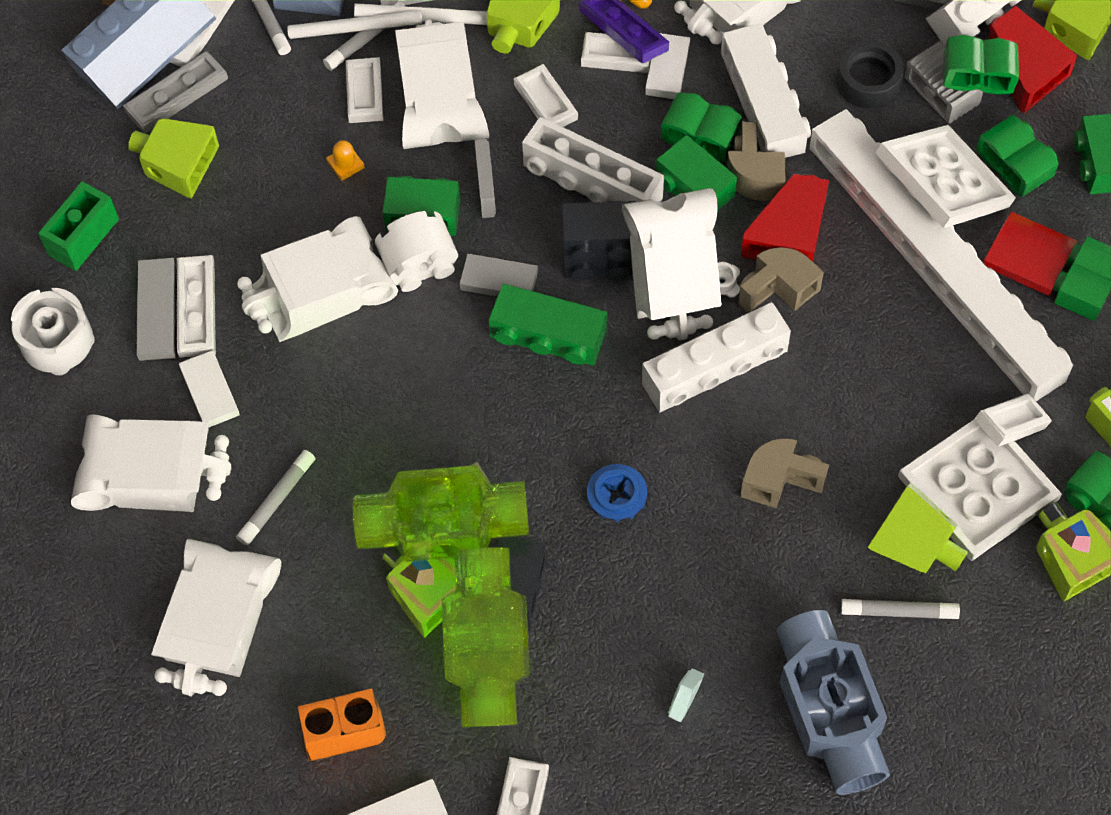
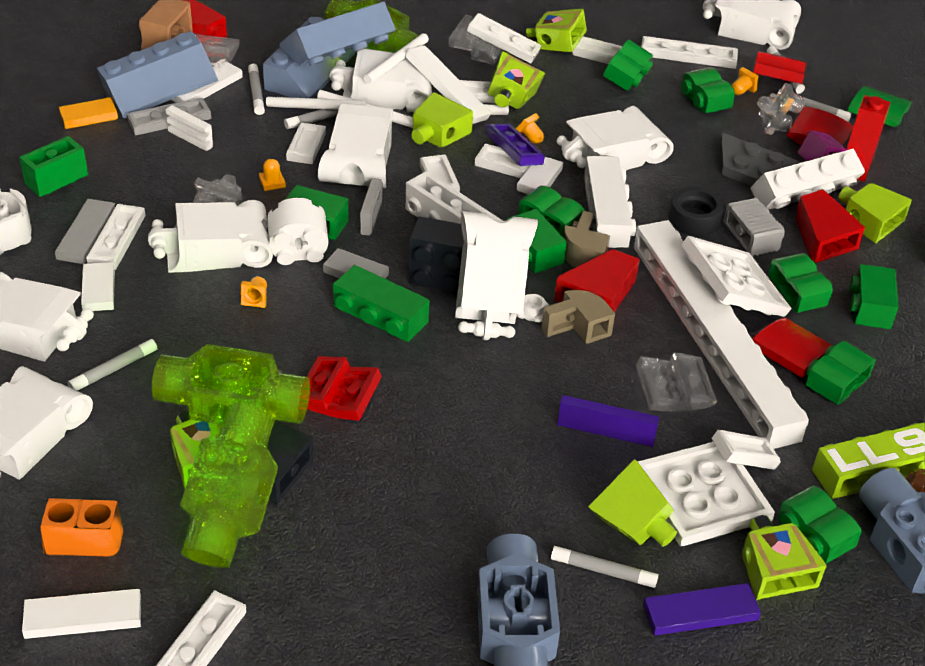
camera: 10 degrees right, 20 degrees down
(72, 115) = (88, 113): none -> light orange tile
(176, 153) = (150, 145): lime torso -> none
(213, 110) = (189, 128): none -> white tile
(282, 213) = (218, 191): none -> clear hips
(395, 347) = (254, 292): none -> light orange piece
(542, 455) = (341, 389): none -> red slope
(612, 478) = (390, 416): blue gear -> none
(685, 694) = (388, 581): light aqua tile -> none
(715, 357) = (507, 352): white brick -> none
(776, 464) = (533, 435): dark tan brick -> none
(854, 420) = (608, 420): none -> dark purple tile
(911, 342) = (675, 383): none -> clear slope
(980, 64) = (784, 211): green brick -> none
(1012, 632) = (701, 609): none -> dark purple tile

